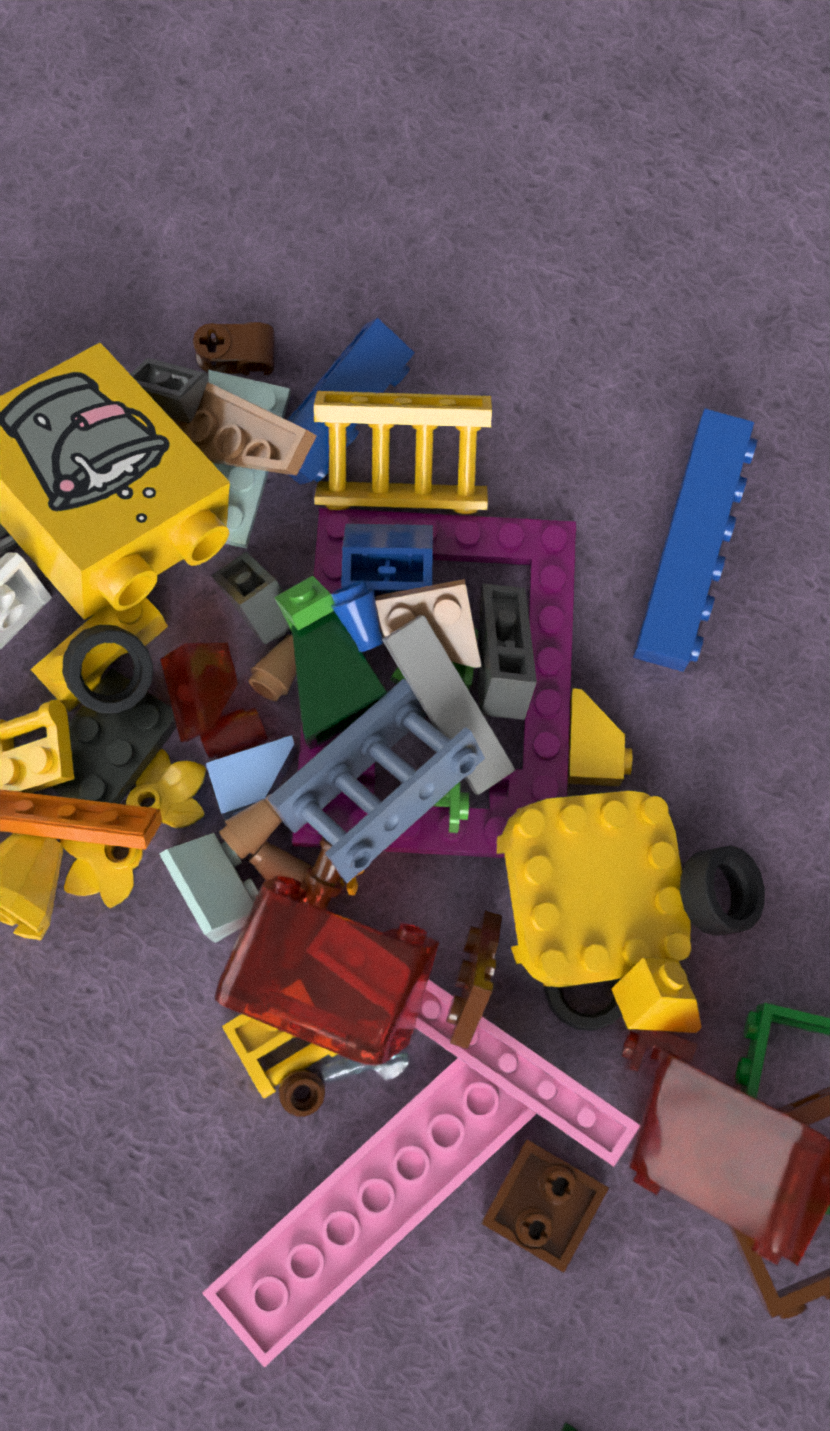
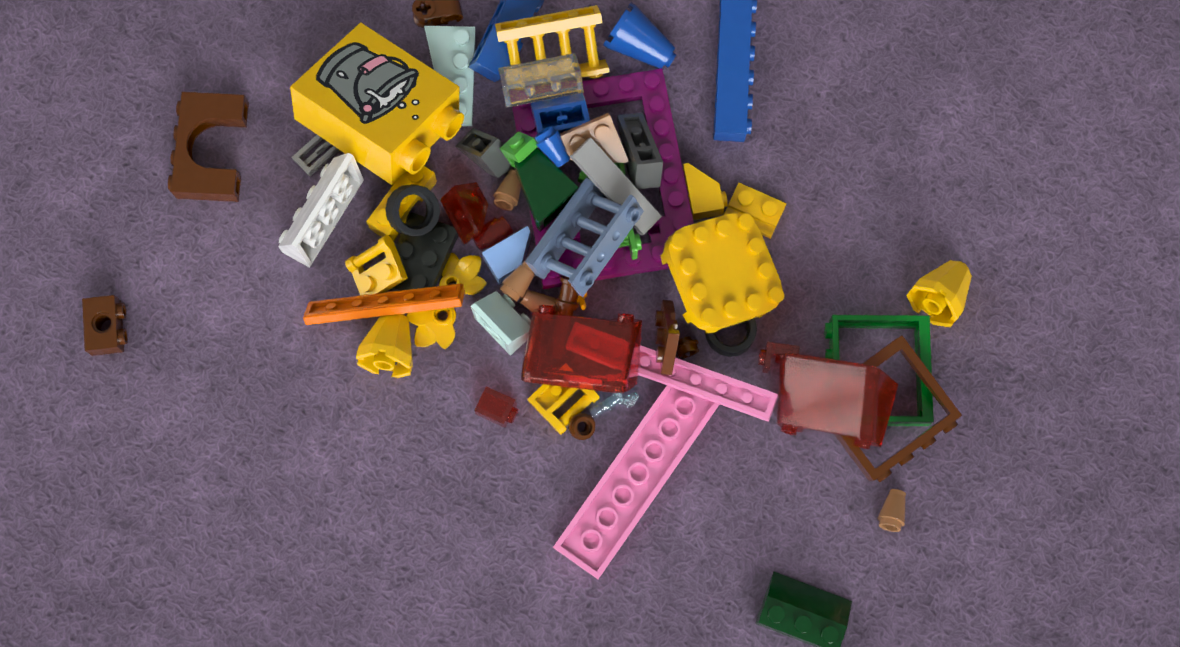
camera: 15 degrees left, 0 degrees up
(168, 1029) = (496, 407): none -> clear red brick
(172, 387) = (408, 38): dark grey slope -> none
(246, 435) = (455, 56): medium nougat wing -> none
(368, 499) = (541, 80): none -> clear brick
(508, 996) = (687, 345): none -> reddish brown plate
(544, 1205) = (734, 456): reddish brown plate -> none
(551, 467) = (640, 39): none -> blue cone
(657, 997) = (772, 324): yellow slope -> none
(685, 788) = (762, 207): none -> yellow plate
(700, 897) = (783, 264): black tyre -> none
(794, 1368) = (893, 511): none -> medium nougat cone

